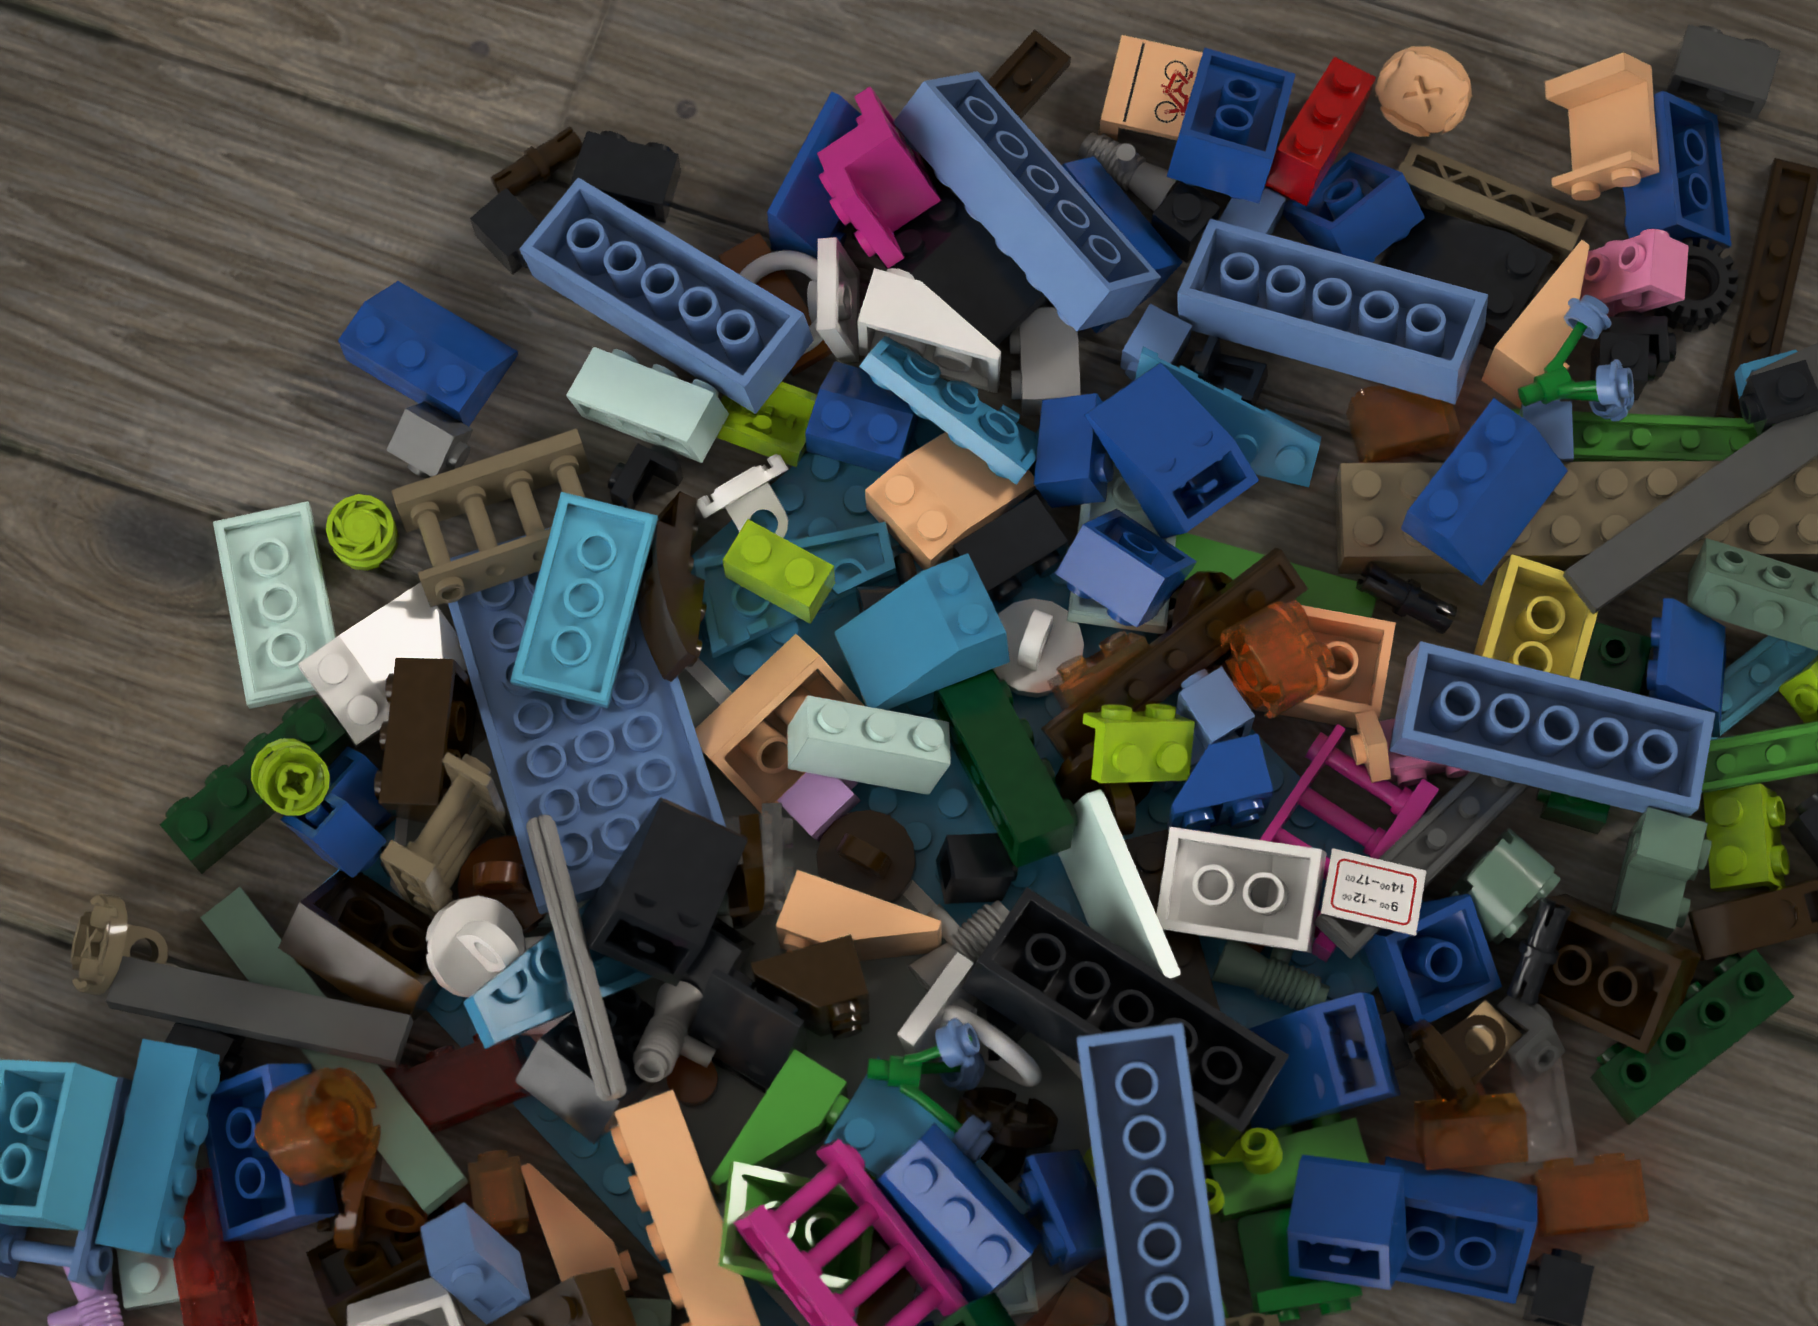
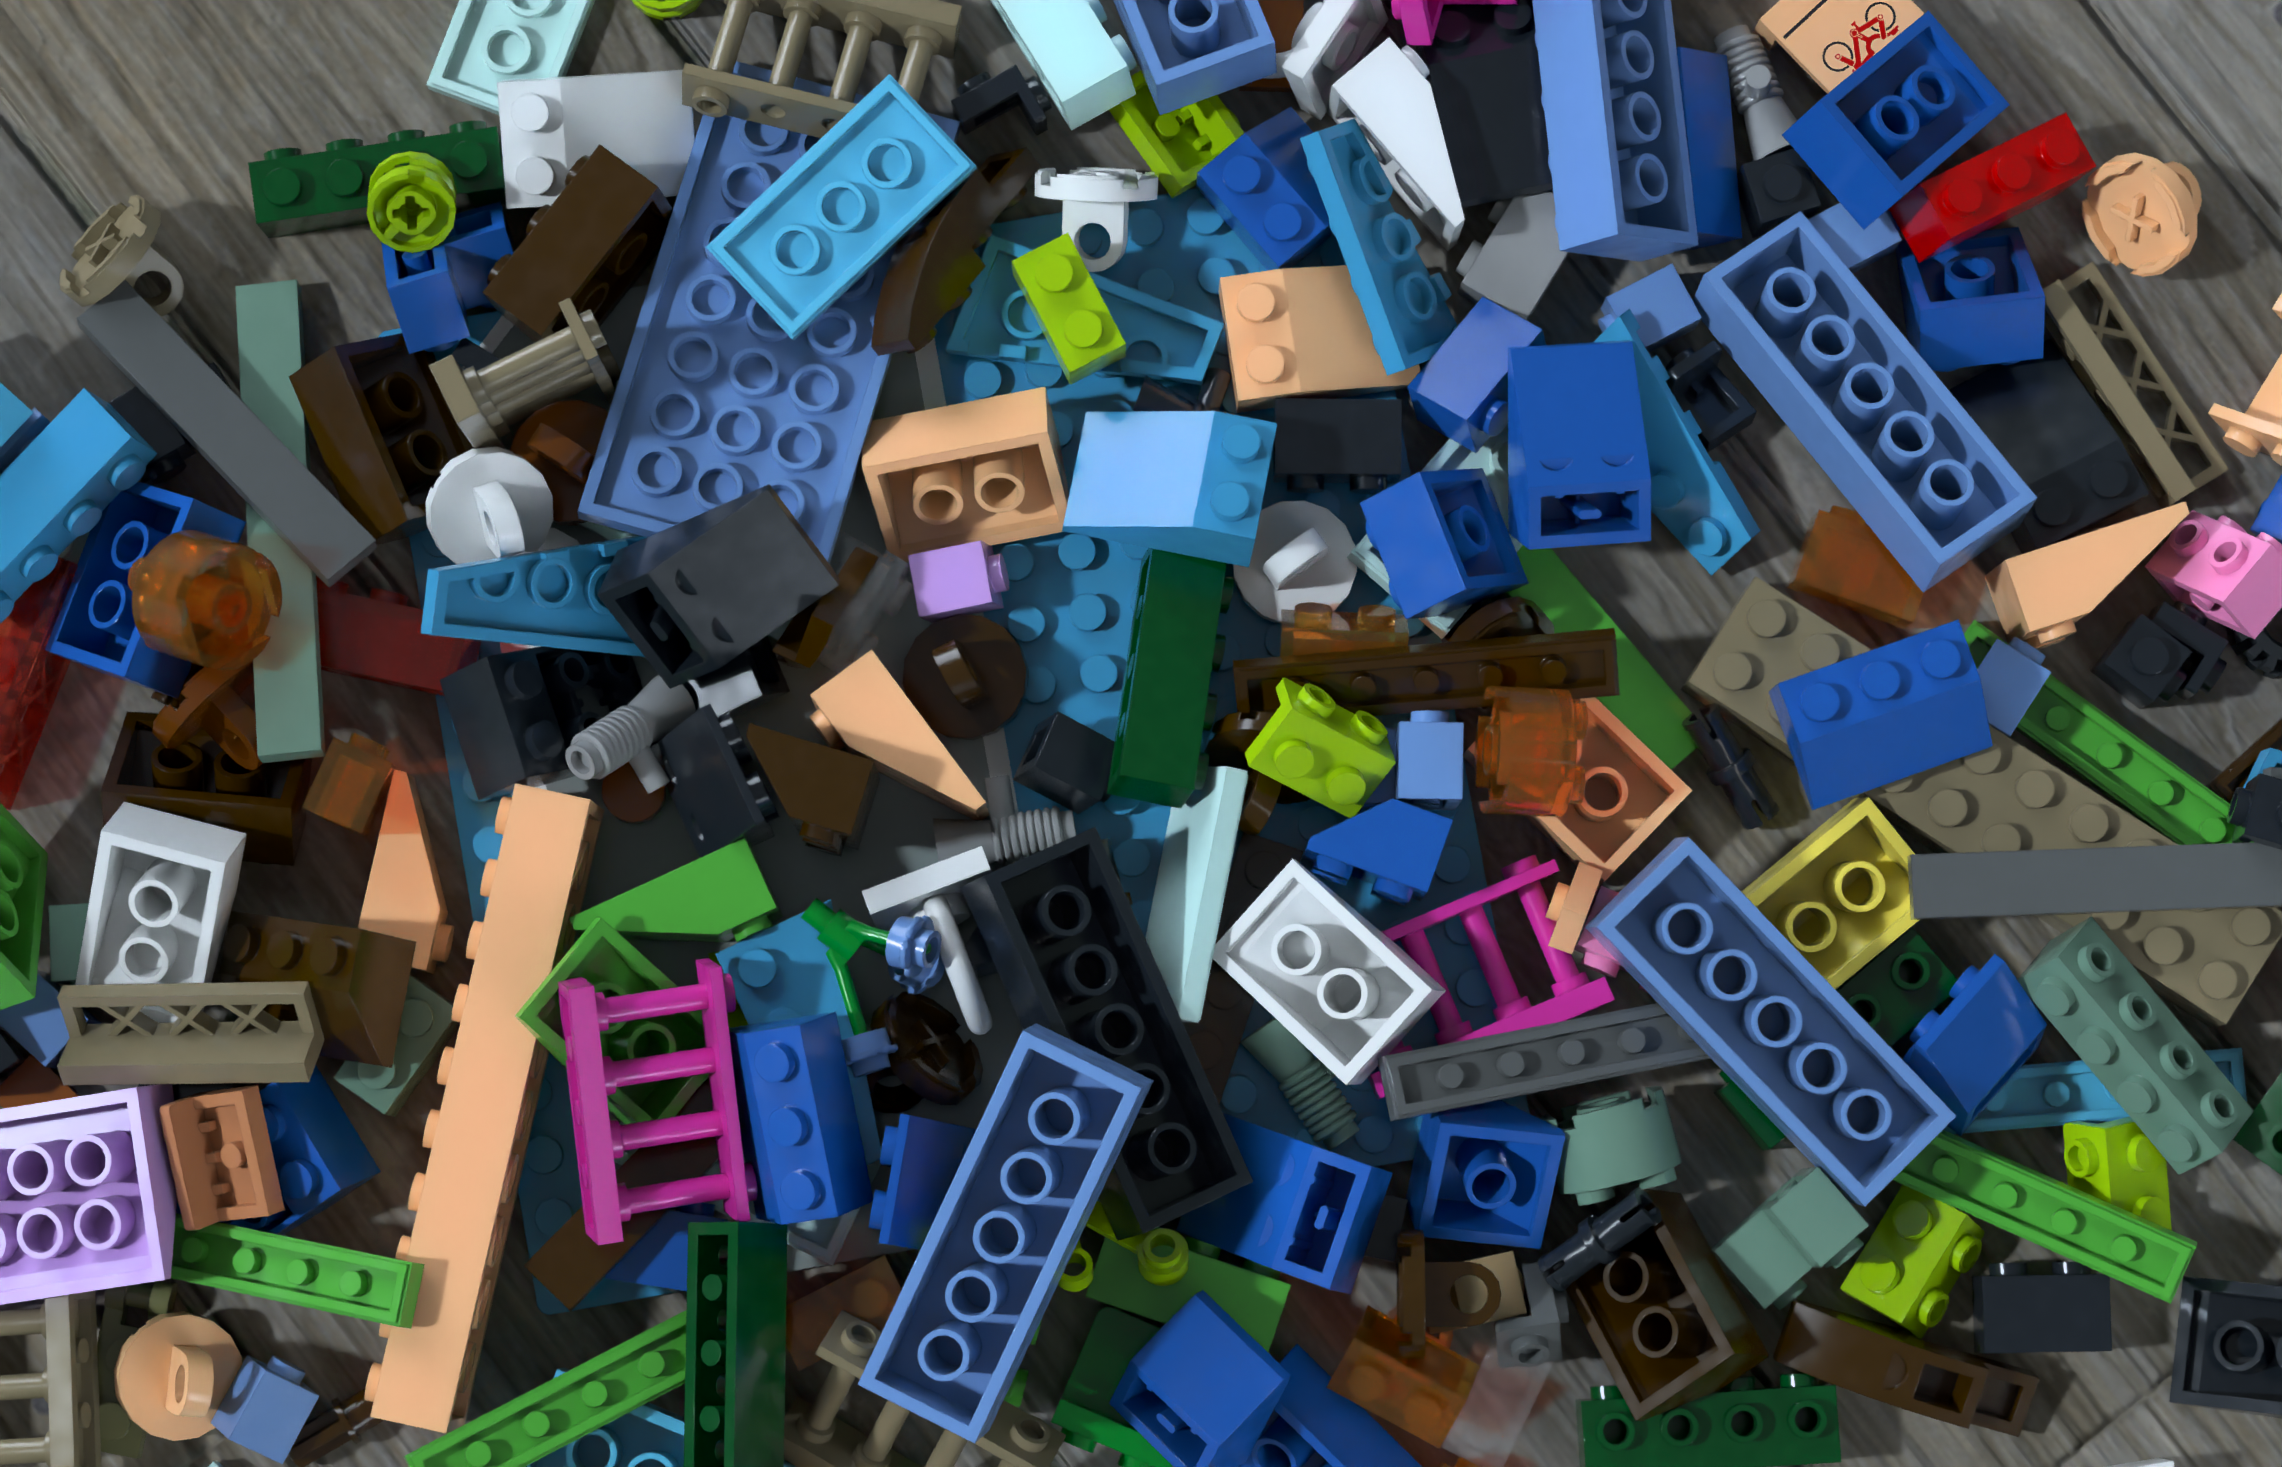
camera: 30 degrees right, 10 degrees up
(475, 1263) = (275, 846): medium blue brick -> none
(576, 958) = (579, 594): light grey axle -> none
(868, 745) = (1039, 560): light aqua brick -> none
(1373, 892) = (1461, 1067): white sticker -> none
(1613, 389) = (2097, 688): plant -> none

